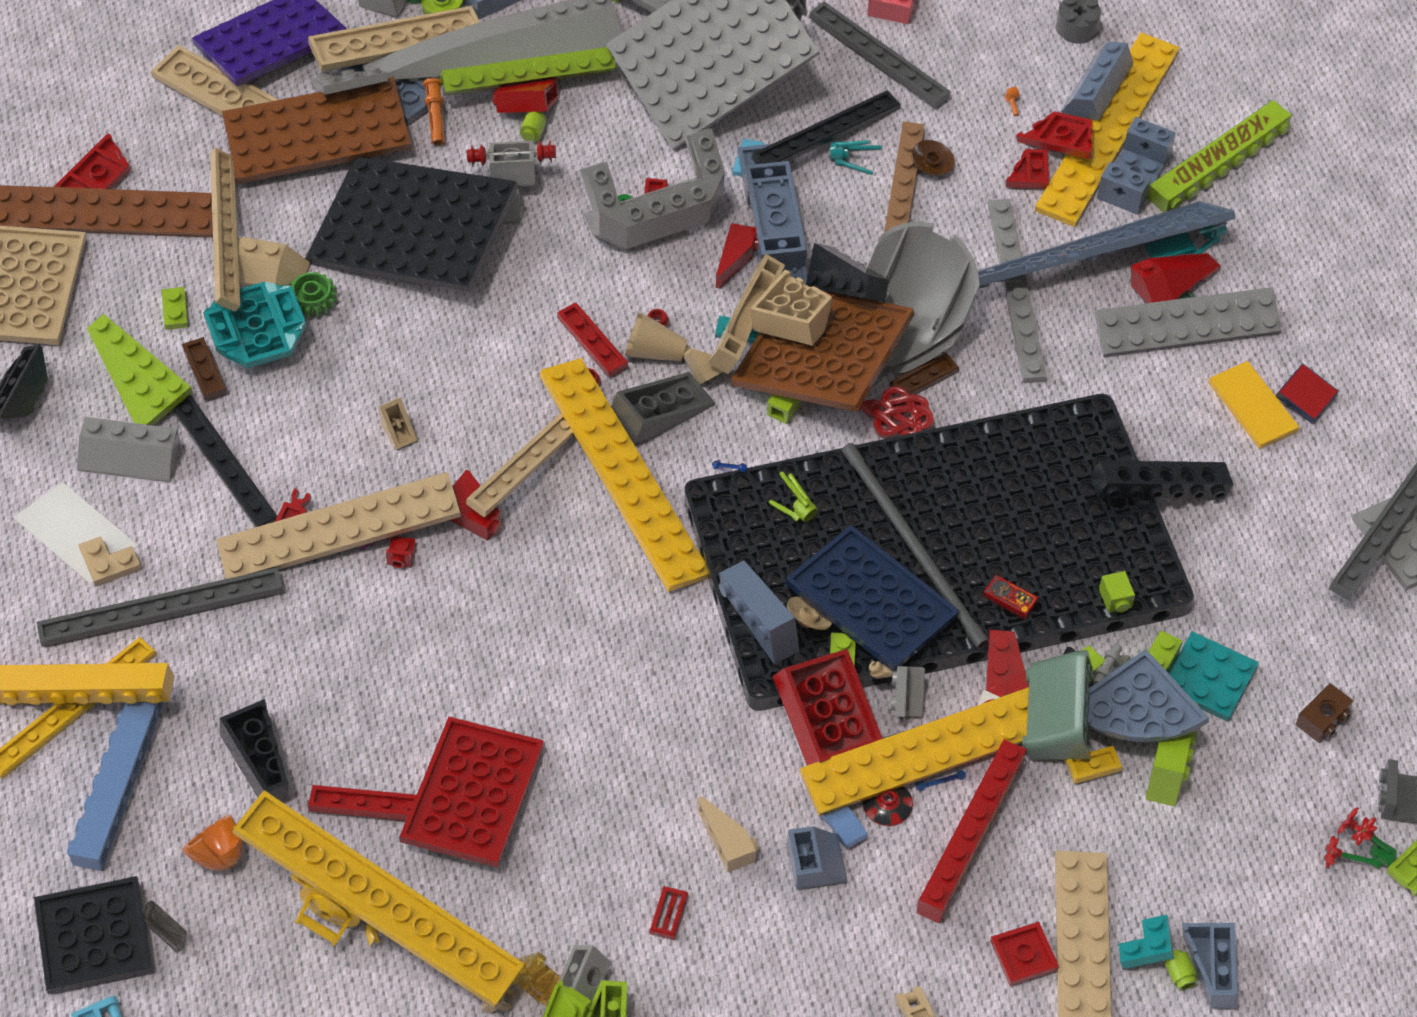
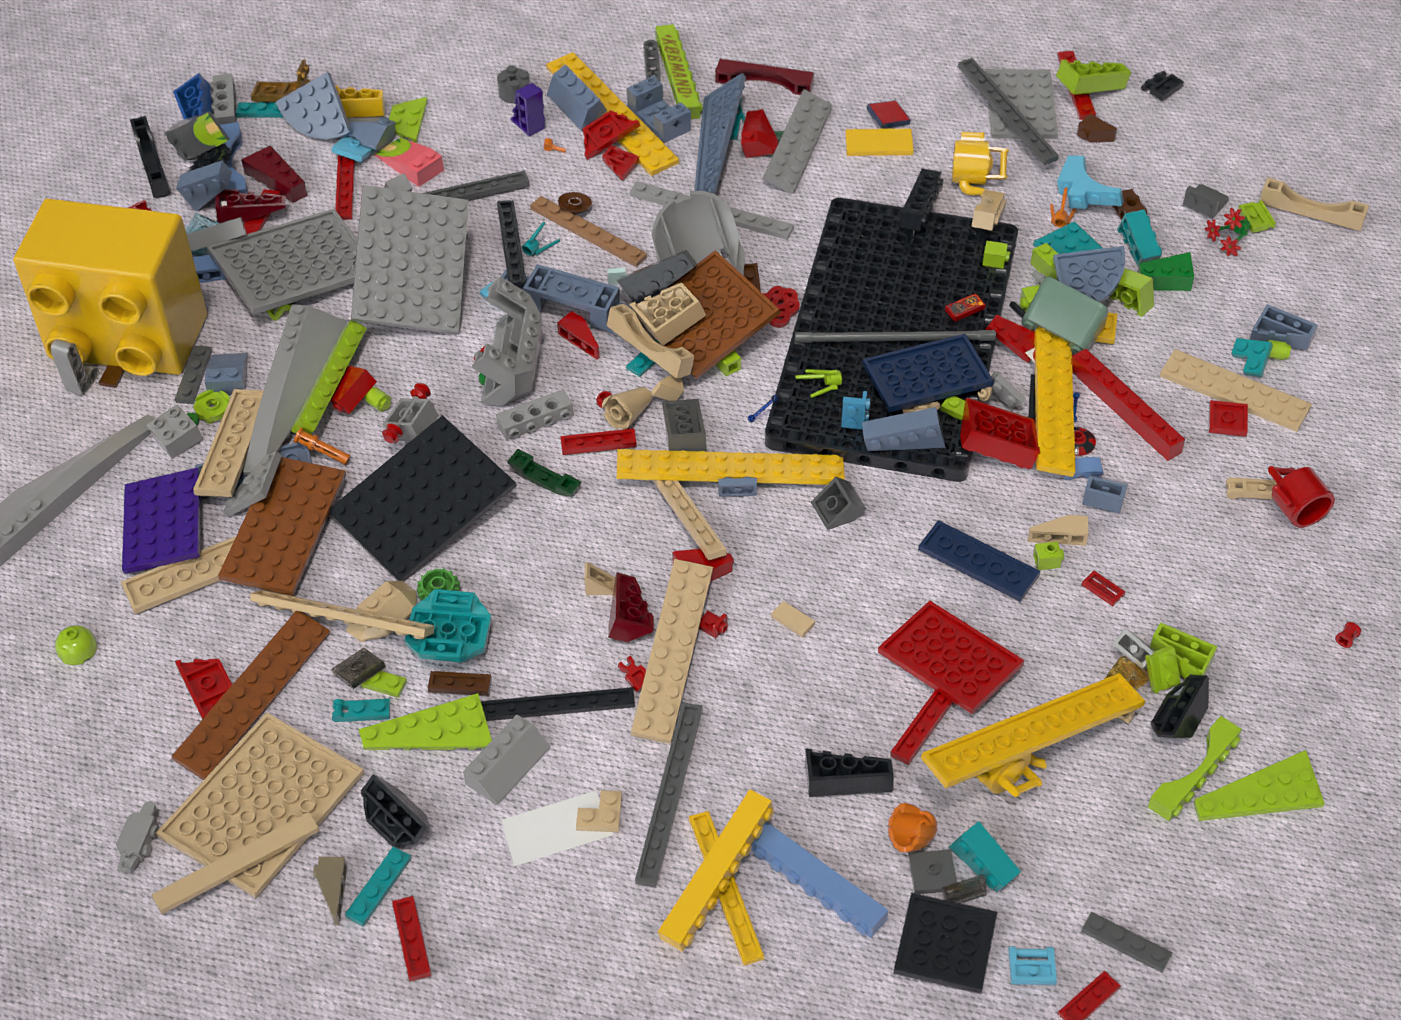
camera: 60 degrees left, 5 degrees down
(89, 51) = (75, 645): none -> lime cylinder
(132, 306) = (361, 710): none -> teal plate
(176, 278) = (358, 668): none -> clear smoke tile
(180, 888) = (931, 871): none -> dark grey plate
(212, 927) = (985, 856): none -> teal wedge
(371, 468) = (629, 611): none -> dark red wedge
(449, 623) = (793, 619): none -> tan tile
(515, 311) = (542, 476): none -> dark green slope
(593, 267) = (534, 414): none -> light grey brick
(598, 490) = (737, 487): none -> sand blue bracket
(633, 769) = (979, 560): none -> dark blue plate
(635, 597) = (838, 504): none -> dark grey slope
(679, 835) = (1048, 555): none -> lime brick
(757, 552) = (855, 411): none -> dark azure bracket
(845, 245) = (614, 275): none -> light aqua tile
(1036, 48) = (529, 109): none -> dark purple wedge
(1172, 556) = (990, 210): none -> tan arch
(1216, 124) = (651, 62): none -> dark grey beam
(1232, 797) = (1170, 273): none -> green wedge
(1255, 645) = (1061, 217): none -> orange plant
(1260, 209) = (791, 79): none -> dark red arch
(1268, 510) = (974, 162): none -> yellow piece
(1270, 743) = (1140, 236): none -> teal wedge
(1320, 639) = (1084, 190): none -> medium azure arch

